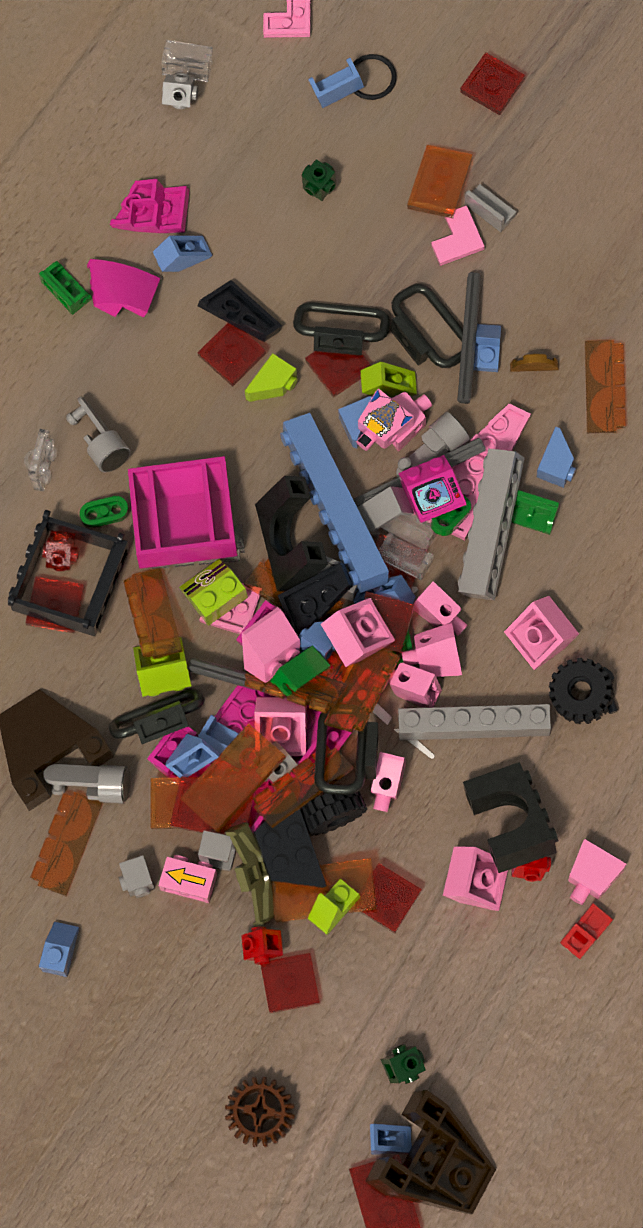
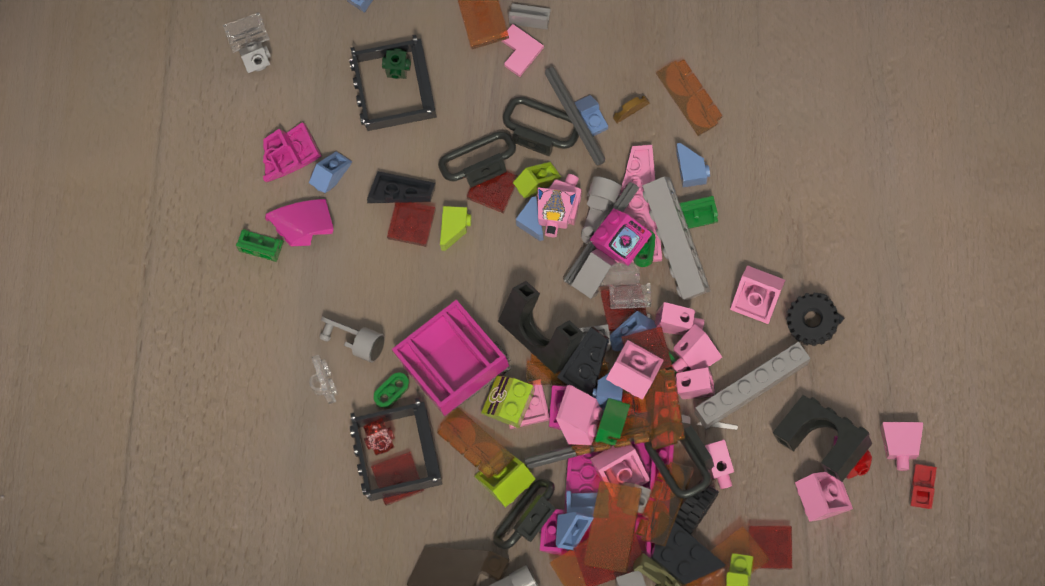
camera: 30 degrees left, 0 degrees up
(335, 503) = (556, 287): medium blue brick -> none
(337, 211) = (428, 111): none -> black window

